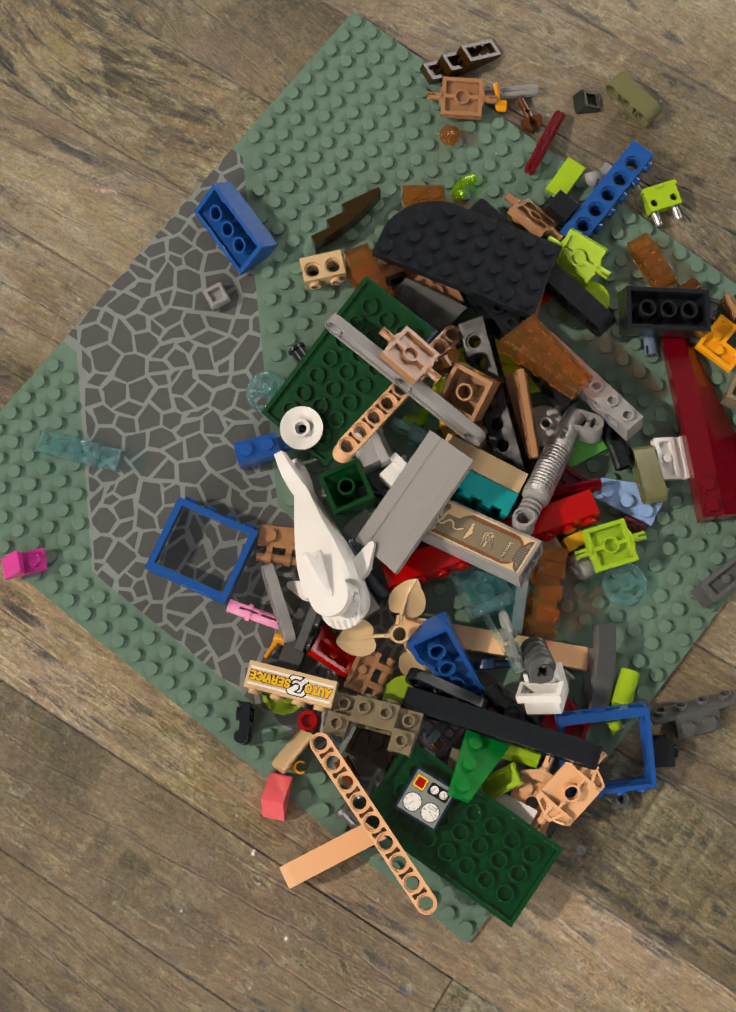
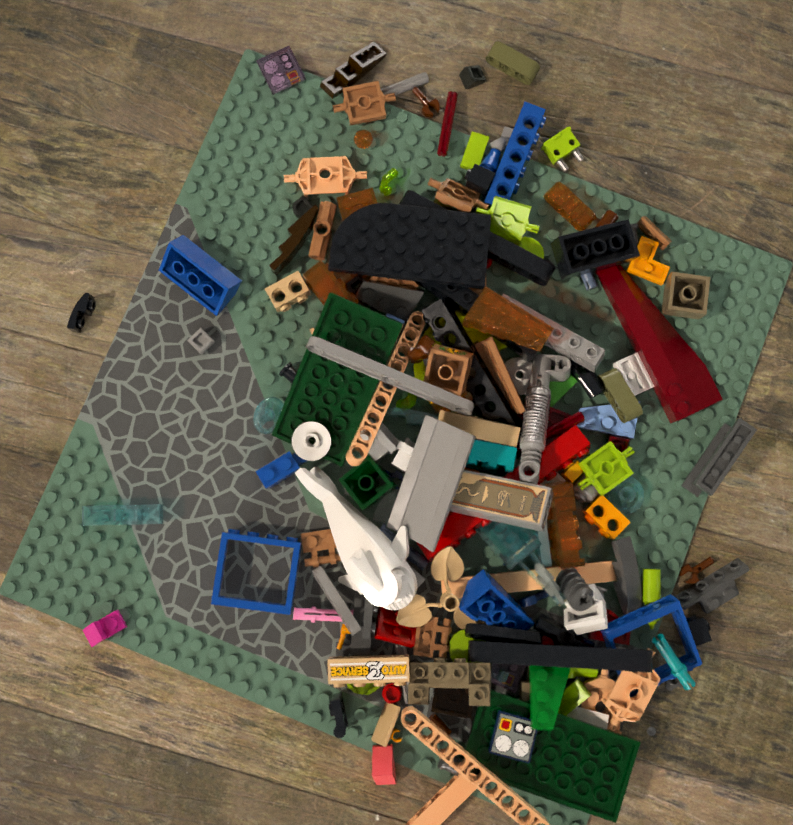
camera: 20 degrees left, 5 degrees up
(104, 228) = (83, 307): none -> black slope
(363, 185) = (301, 206): none -> pearl dark grey tile
(383, 42) = (280, 70): none -> tile
(383, 206) = (324, 220): none -> medium nougat piece
(409, 355) = (389, 354): medium nougat plate -> none
(411, 170) = (339, 181): none -> light nougat plate
(501, 105) = (400, 99): light orange hand -> none
(581, 192) = (491, 160): none -> blue cone
(601, 597) = (609, 512): none -> light orange brick
(628, 782) = (677, 668): none -> teal pin
(682, 688) = (695, 570): none -> reddish brown bar

